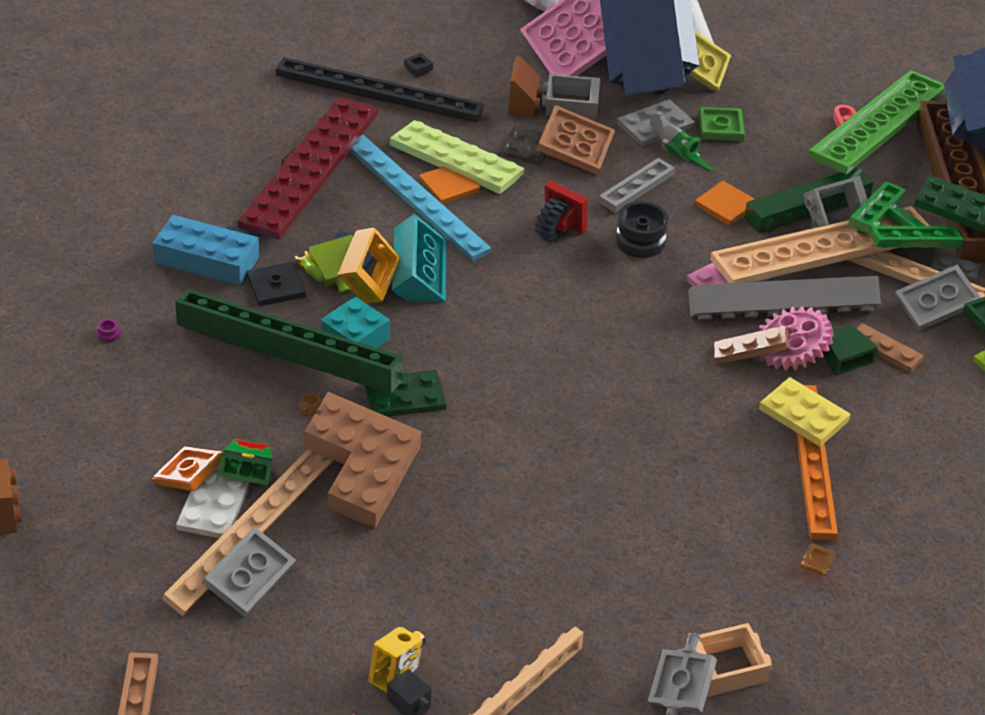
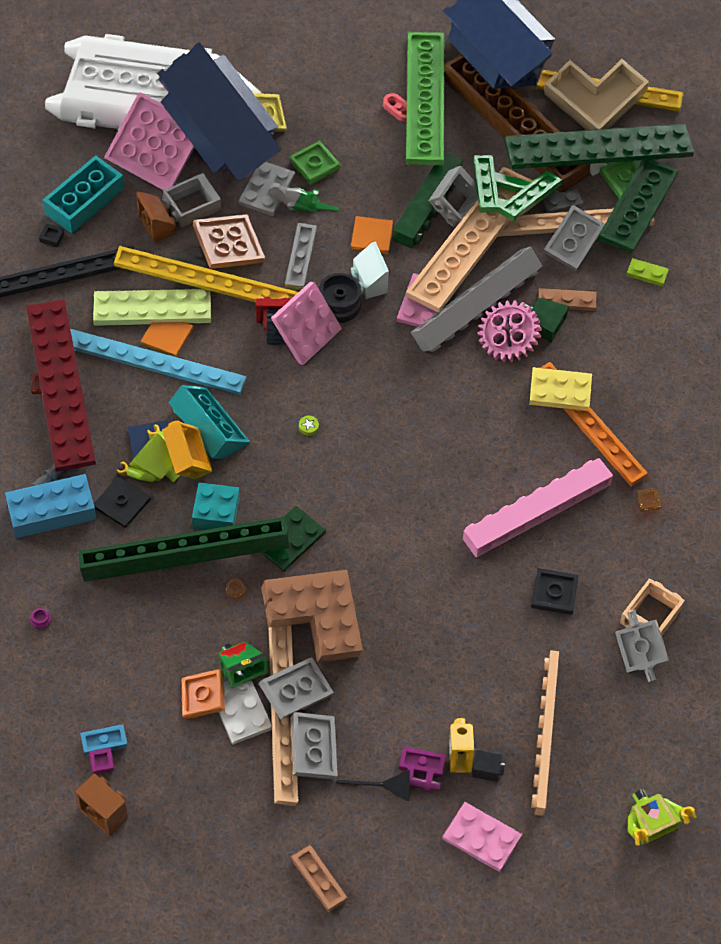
camera: 35 degrees left, 15 degrees up
(40, 469) = (101, 761): none -> magenta plate
(60, 454) = (104, 738): none -> dark azure plate
(280, 511) = (296, 688): none -> light grey plate
(298, 655) = (398, 784): none -> black piece
(342, 650) = (423, 763): none -> magenta plate
(474, 46) = (83, 194): none -> teal brick
(514, 316) = (308, 425): none -> lime tile
(522, 152) = (197, 276): none -> yellow plate
(585, 228) = (306, 323): none -> bright pink plate
(635, 583) = (555, 591): none -> black plate
(686, 500) = (537, 507): none -> bright pink brick
(692, 225) = (371, 271): none -> light aqua slope
(751, 345) = (486, 354): nougat plate -> none

